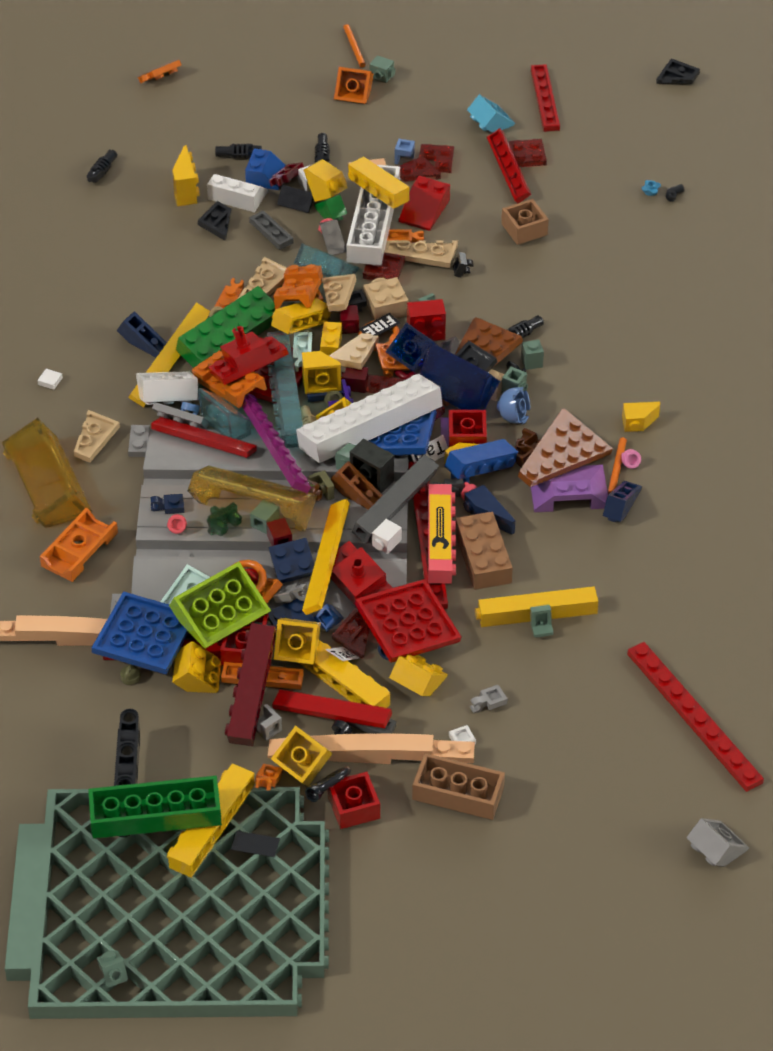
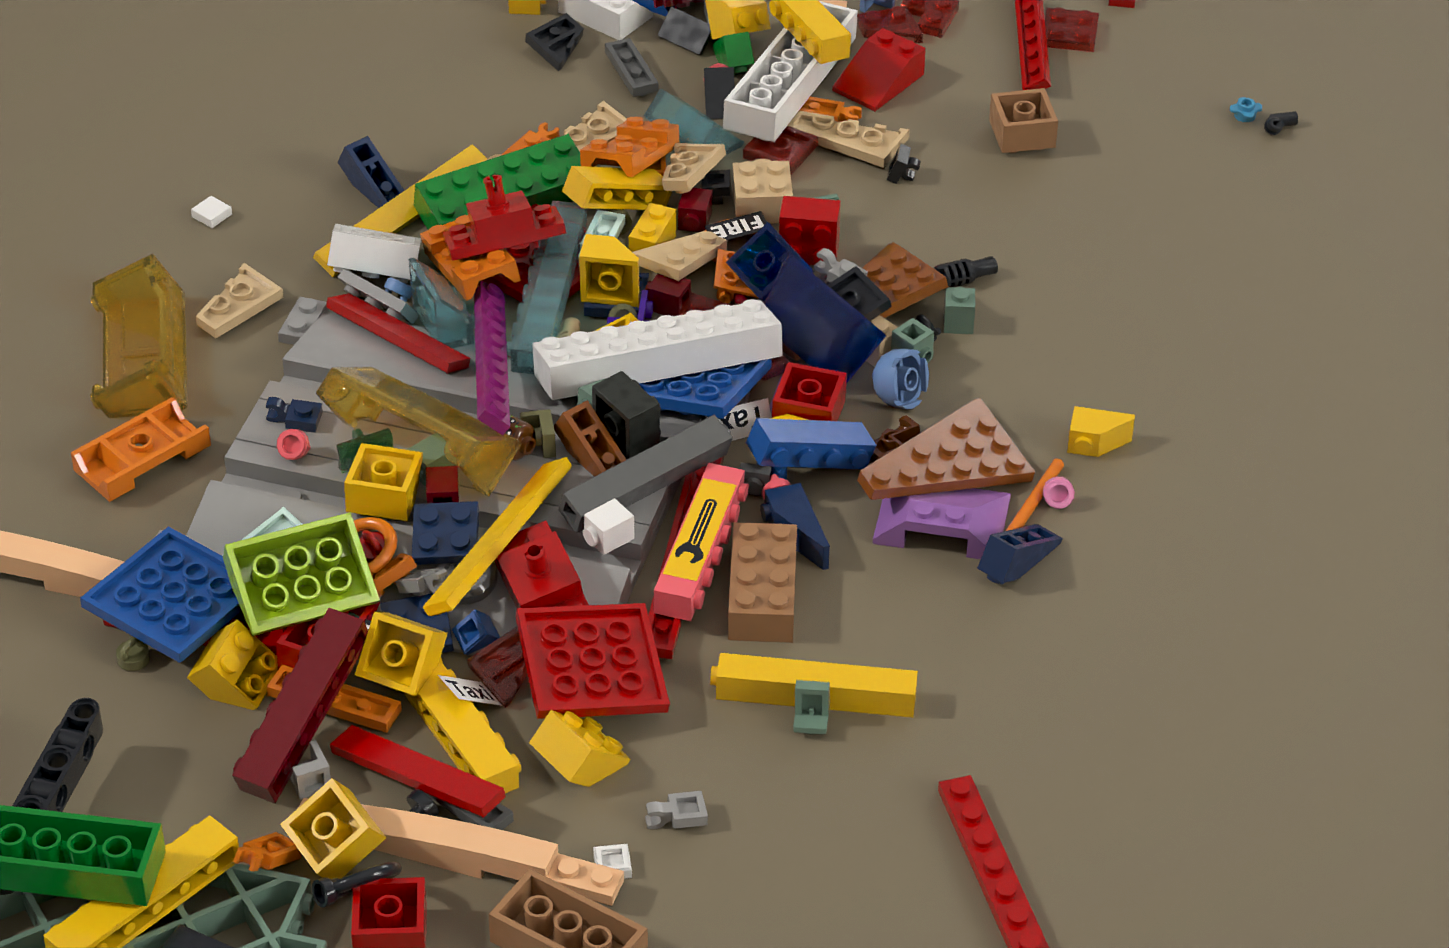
camera: 15 degrees right, 5 degrees down
(244, 536) = (383, 482): none -> yellow slope
(454, 344) = (832, 267): none -> light grey plate

